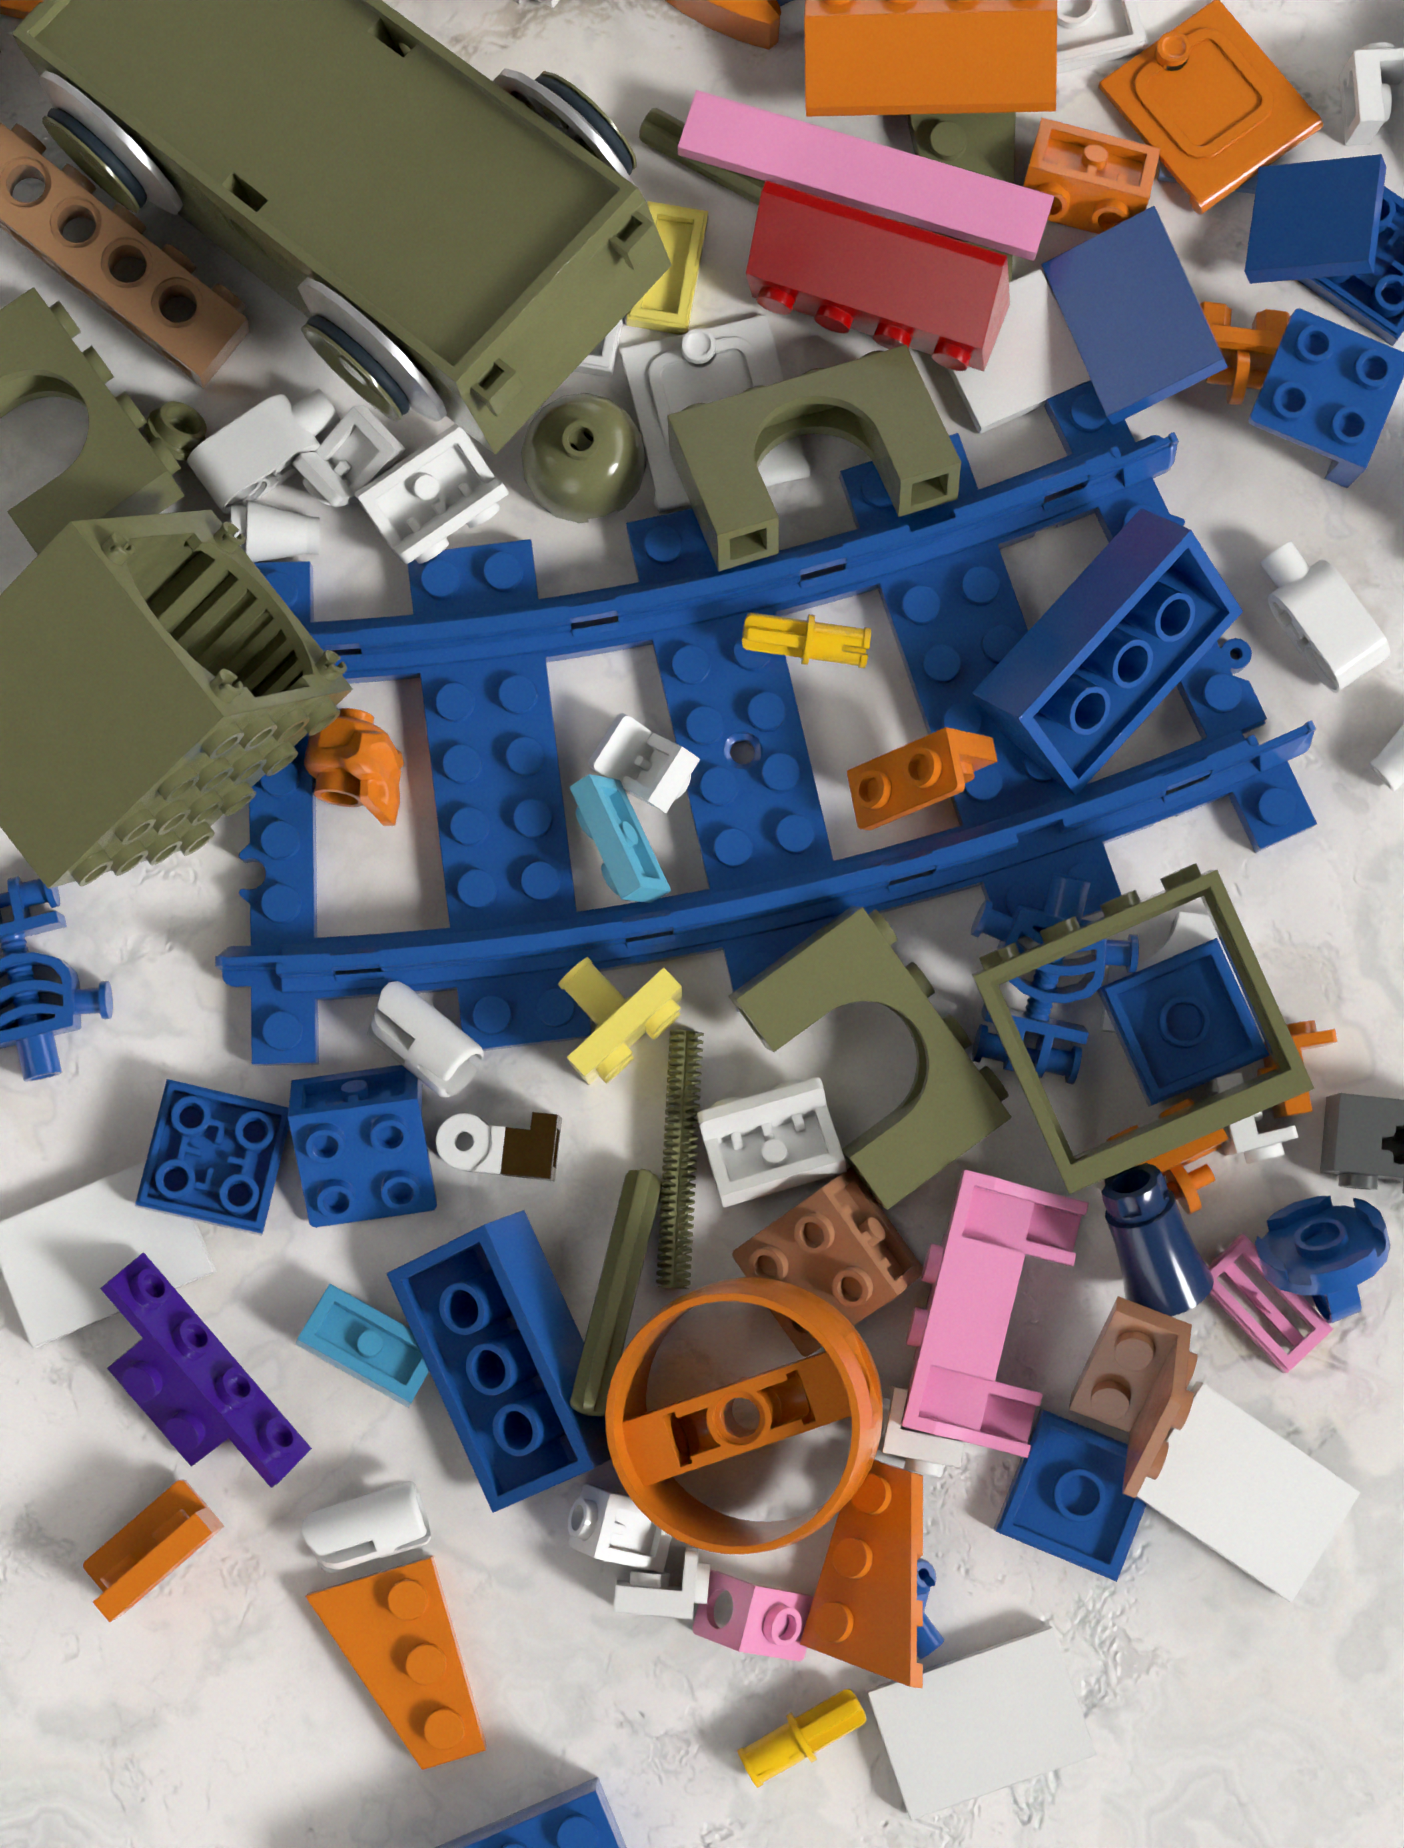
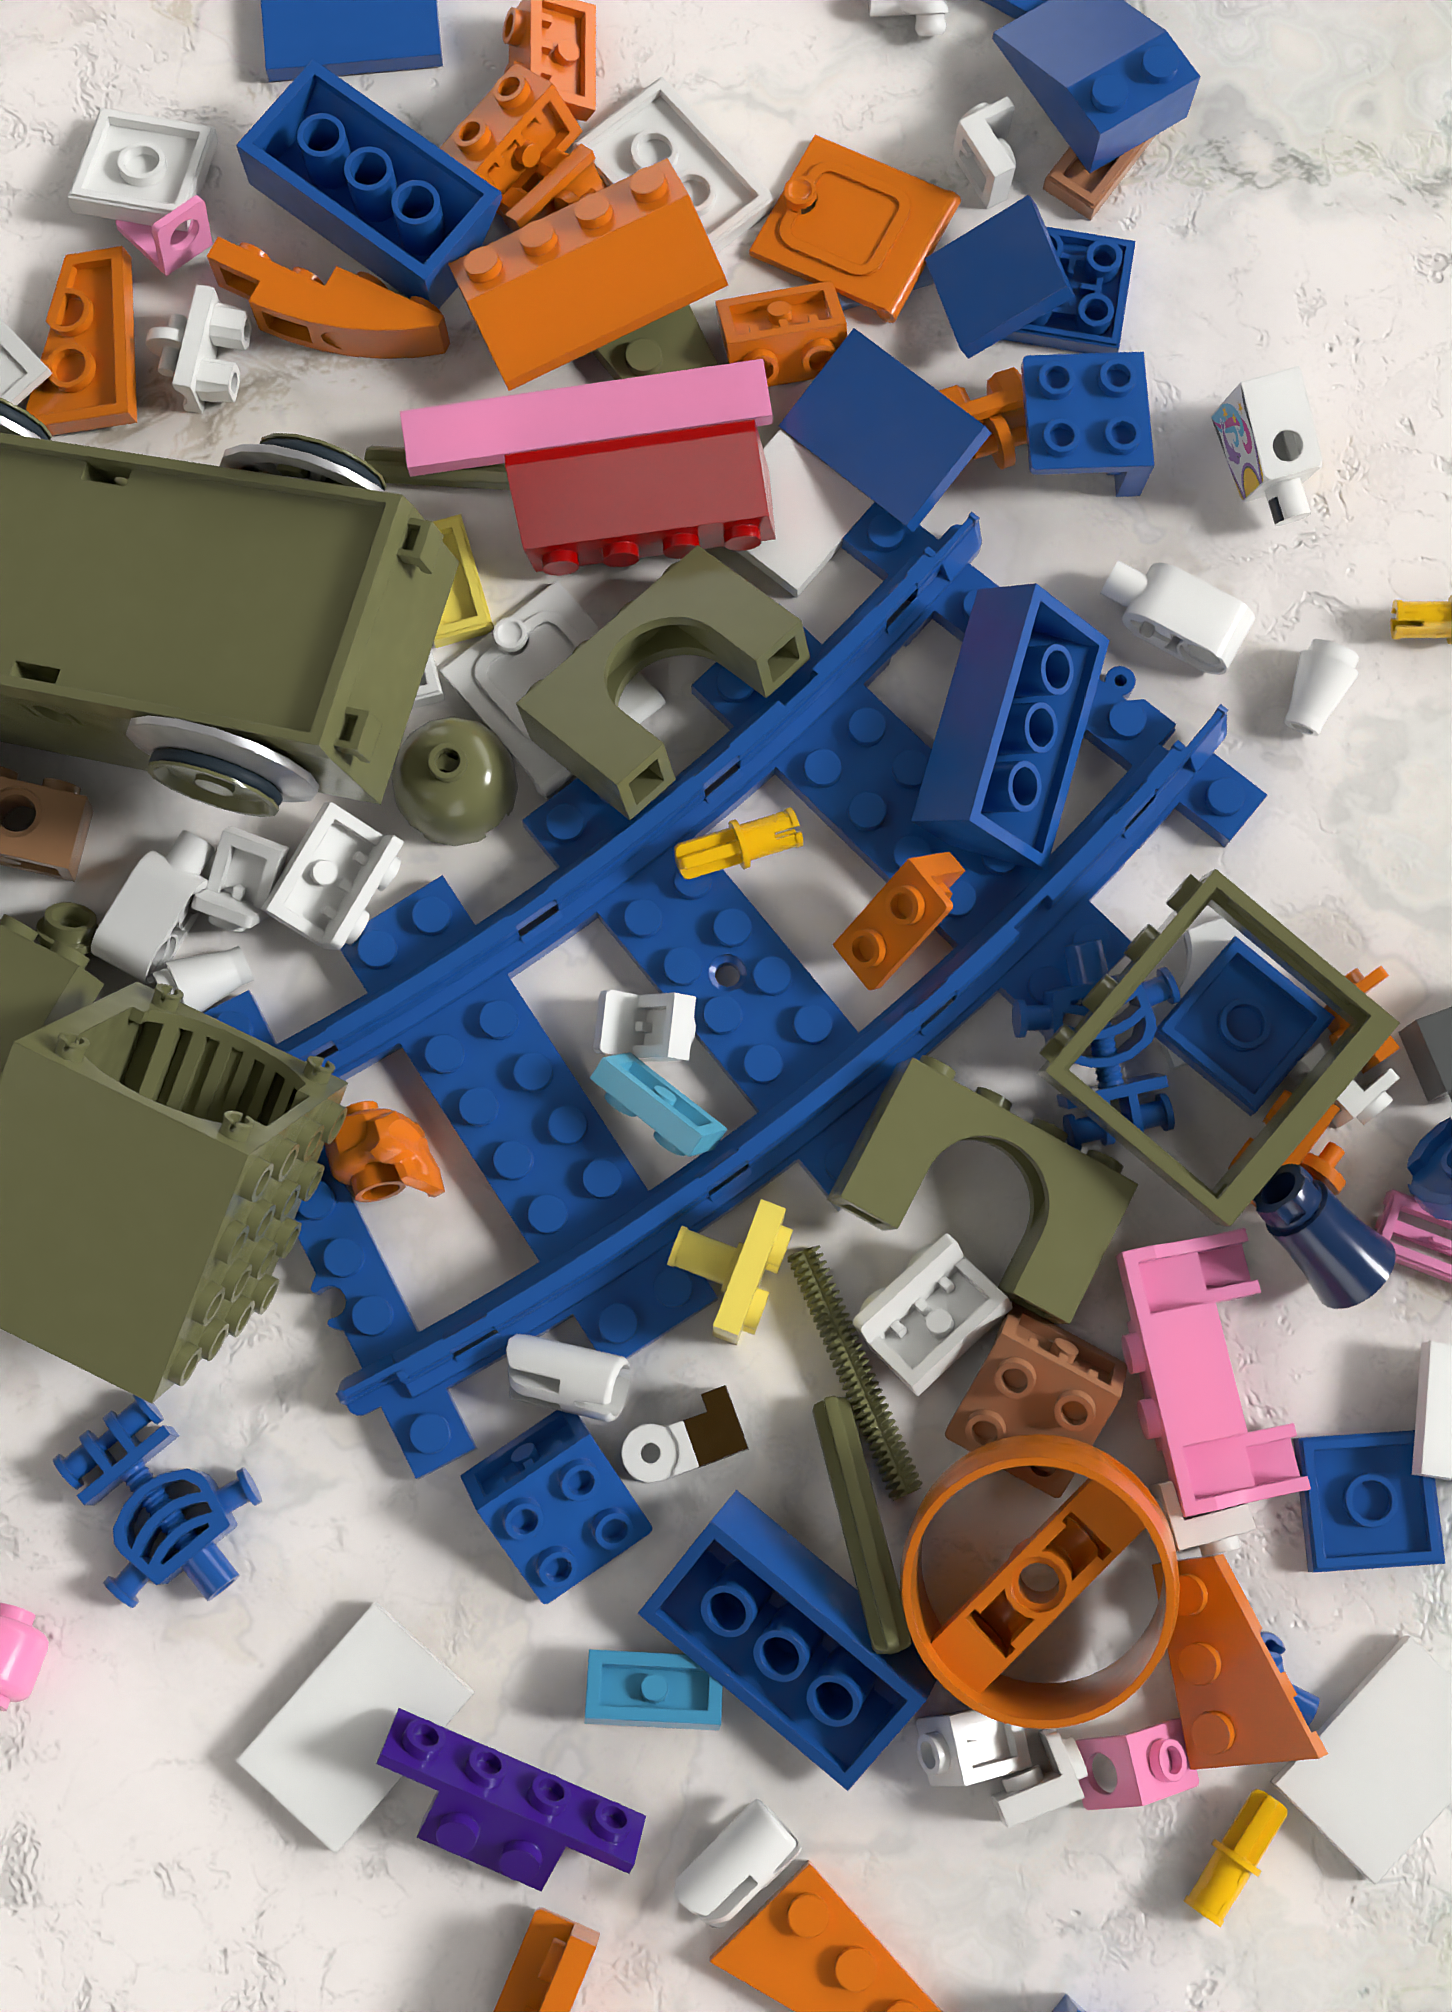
camera: 25 degrees left, 5 degrees down
(213, 1157) = (422, 1584): blue tile -> none
(1139, 1384) = (1379, 1369): nougat bracket -> none

